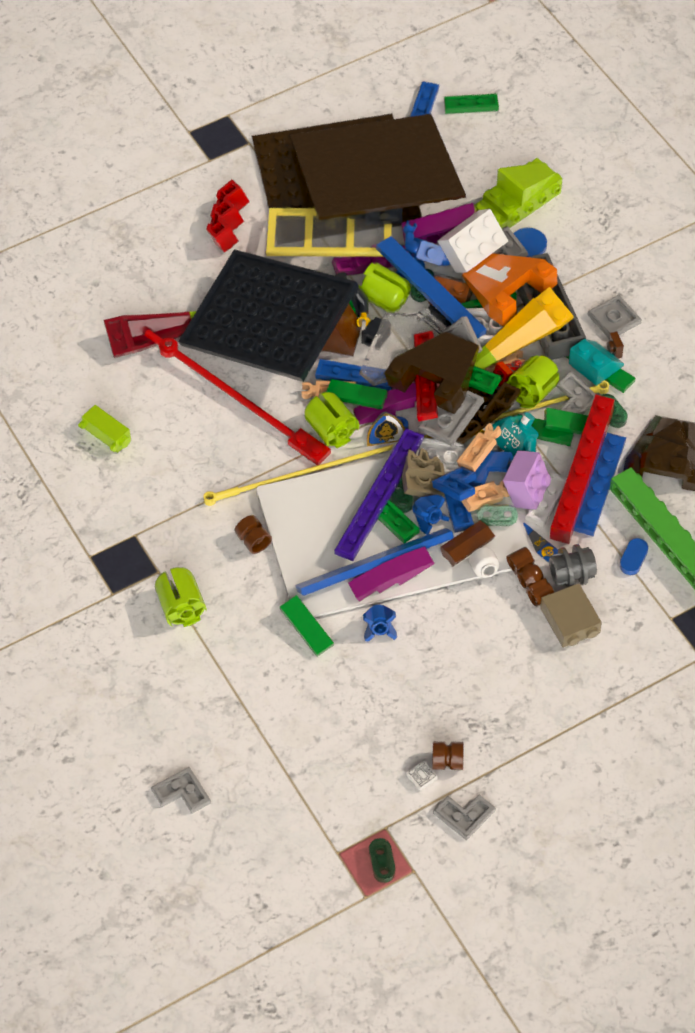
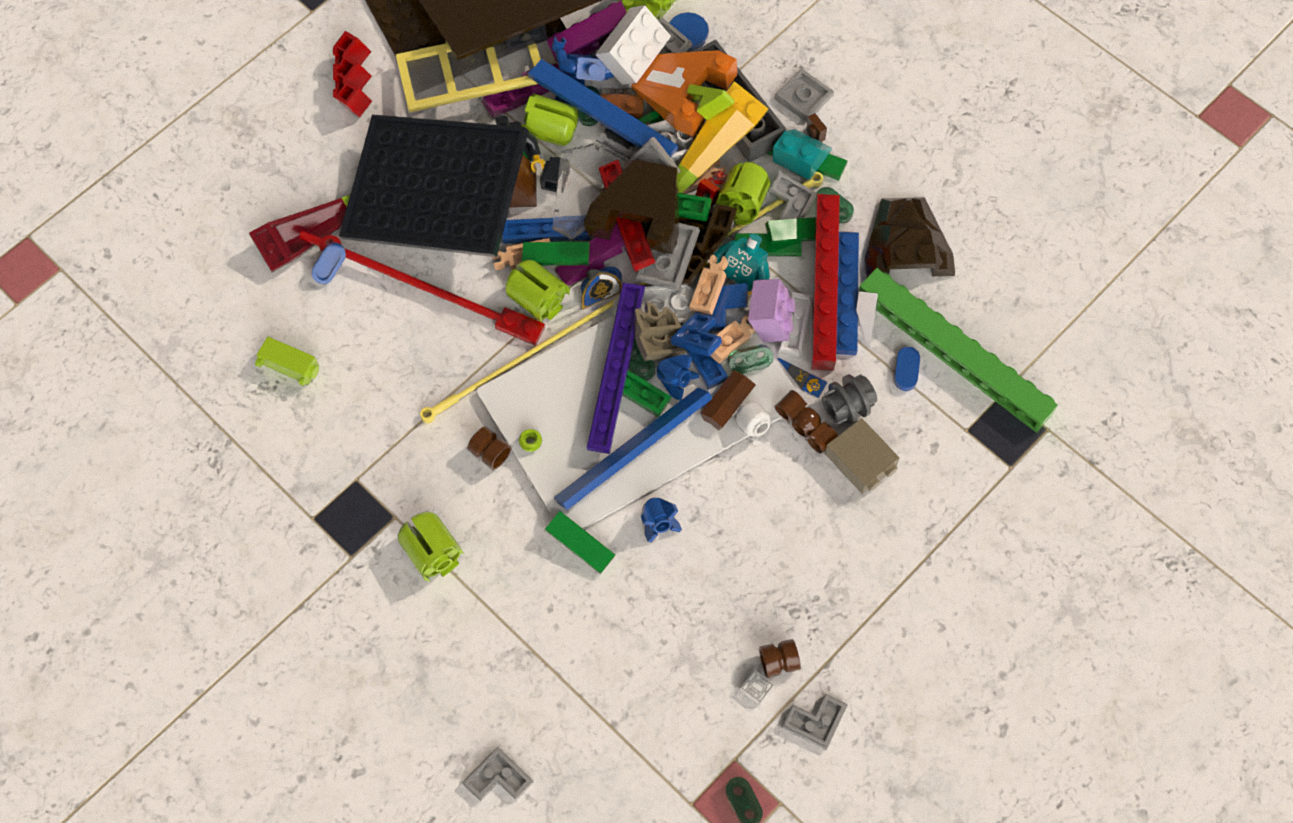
camera: 15 degrees left, 10 degrees up
(163, 360) = (328, 263): none -> tile
(289, 531) = (530, 434): none -> lime plate
(391, 572) = (656, 457): magenta slope -> none
(523, 297) = (710, 100): none -> lime slope
(611, 503) = (866, 312): none -> white sticker

